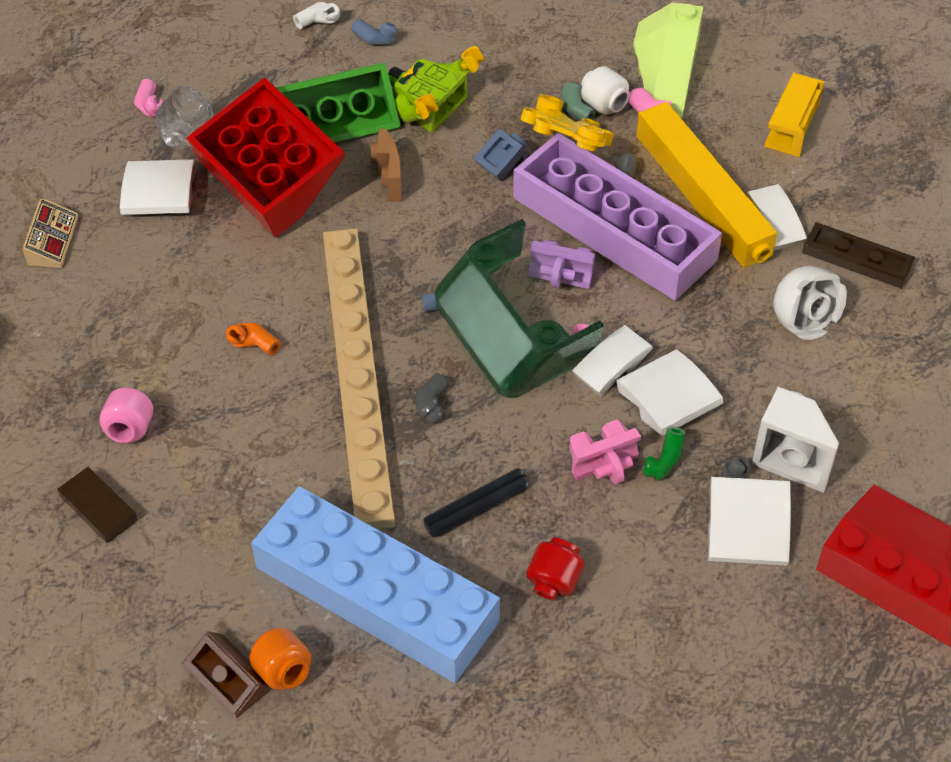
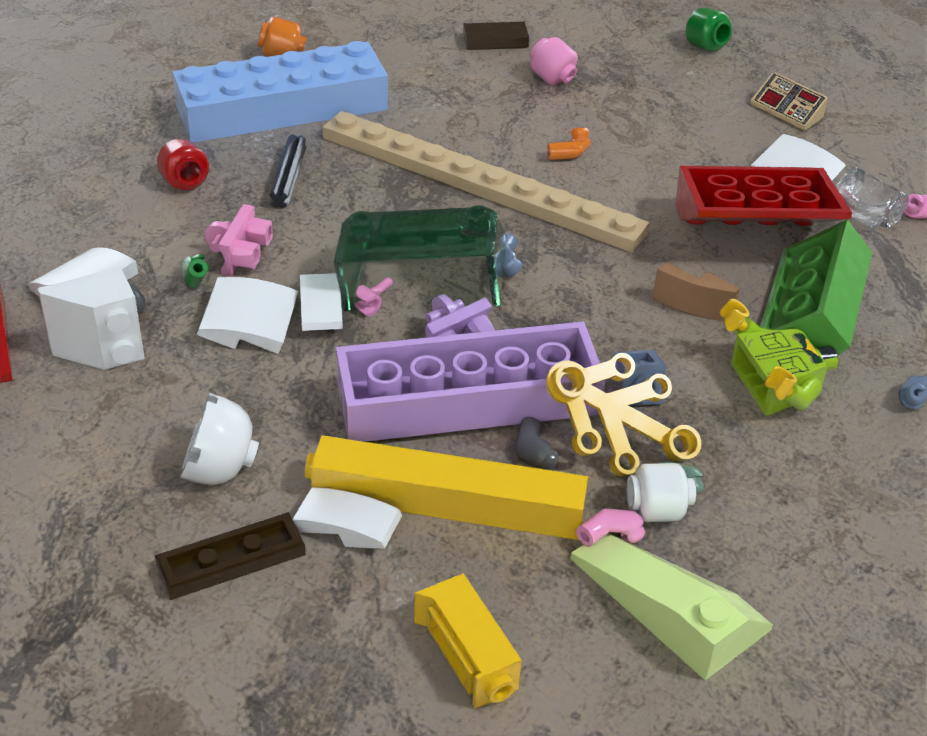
camera: 125 degrees right, 10 degrees down
(225, 673) = (319, 32): reddish brown slope -> none
(427, 400) = (399, 187): dark grey arm -> none

